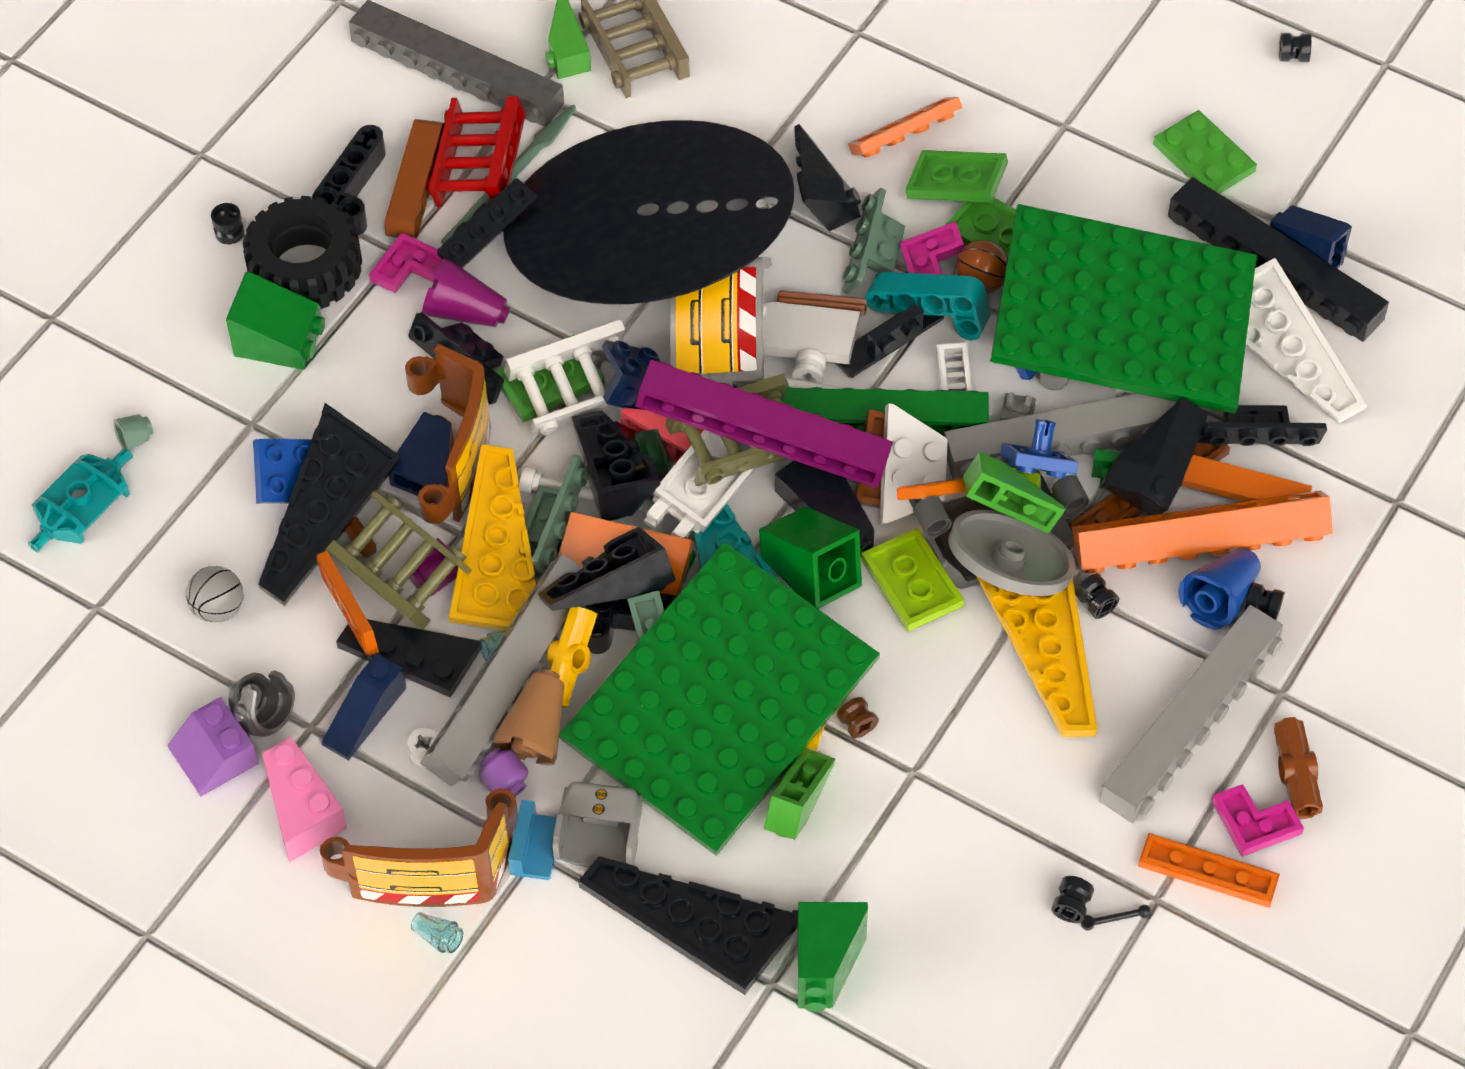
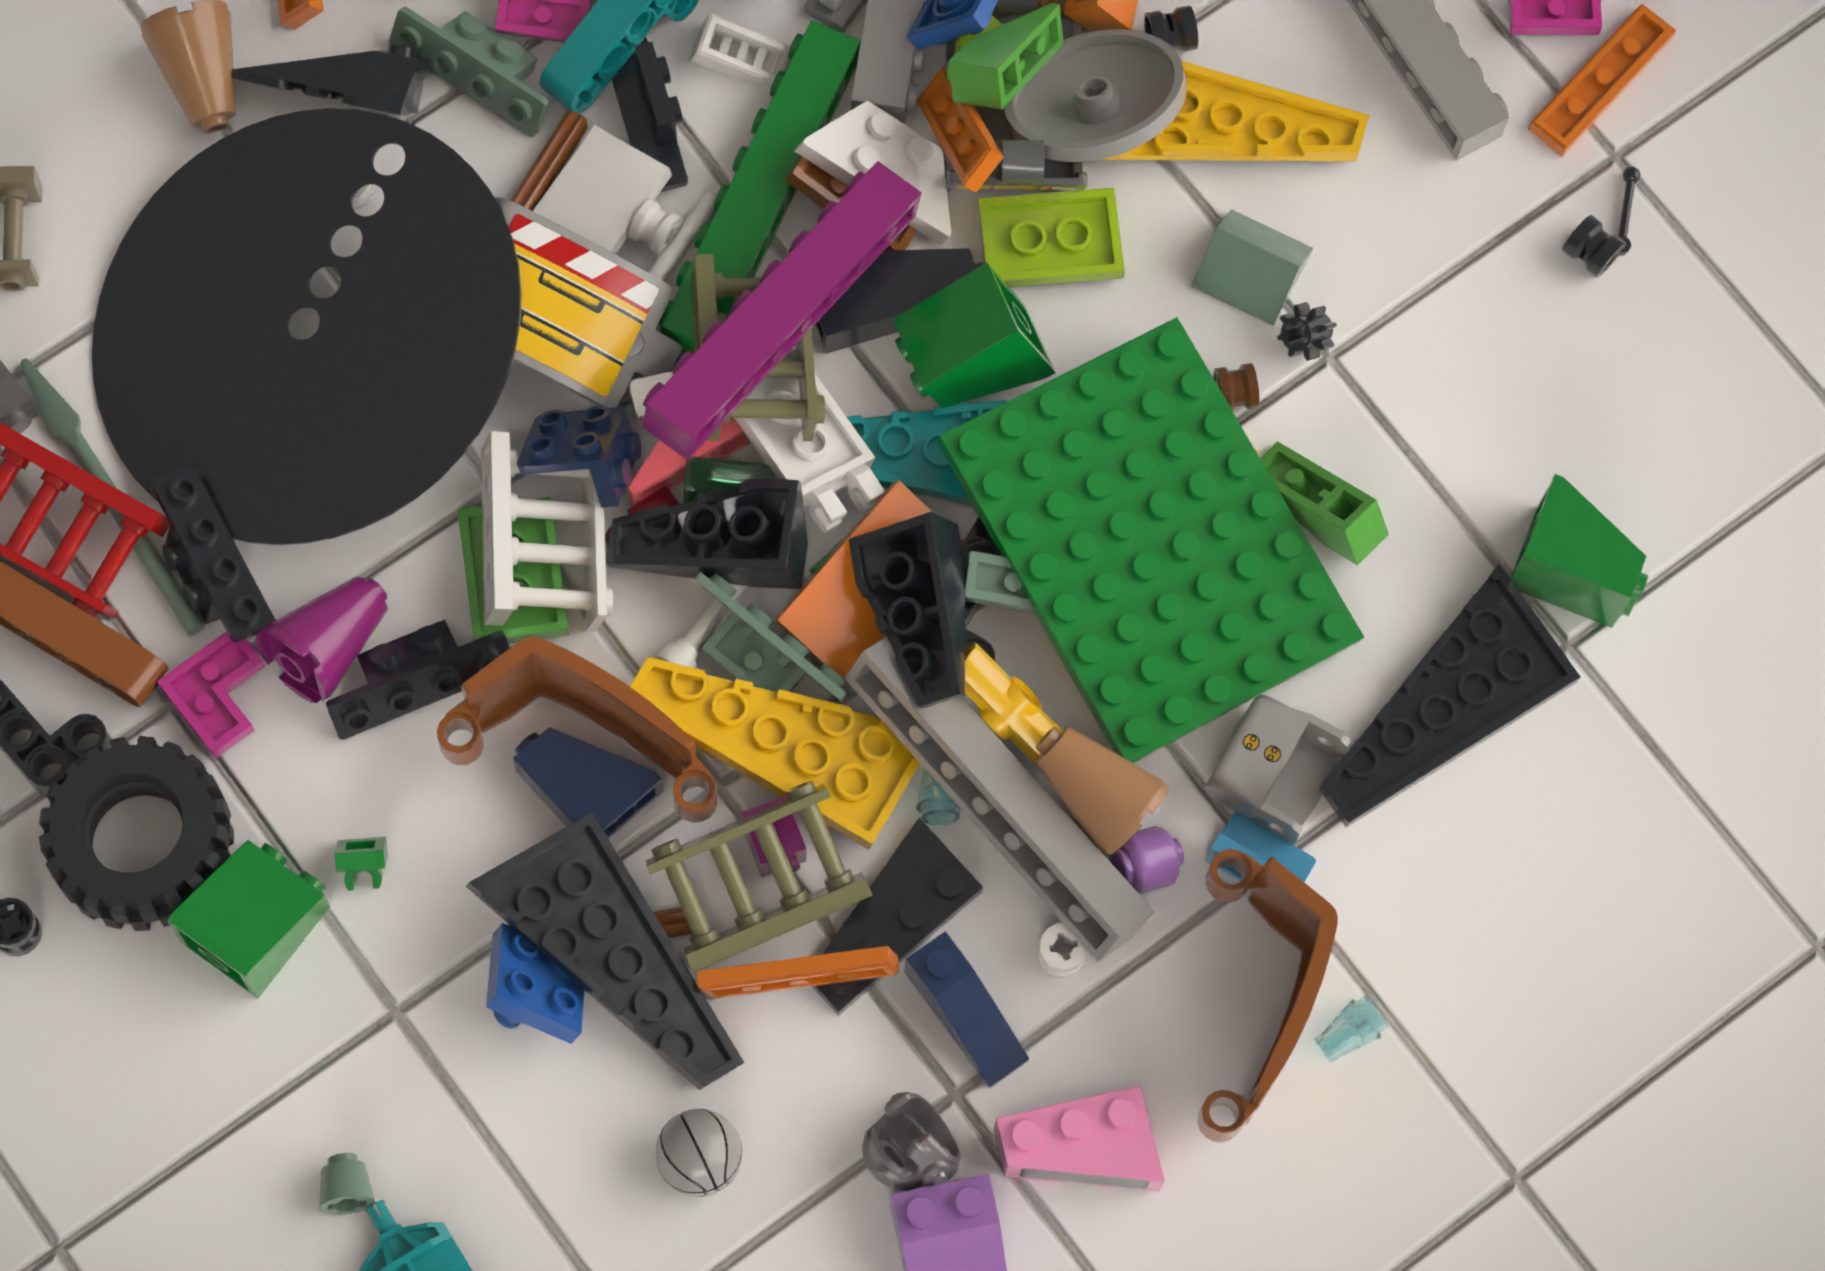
camera: 75 degrees left, 15 degrees up
(335, 367) = (361, 855): none -> green tile
(799, 102) = (196, 60): none -> medium nougat cone
(918, 743) = (1306, 331): none -> black gear
(955, 700) = (1251, 266): none -> sand green slope

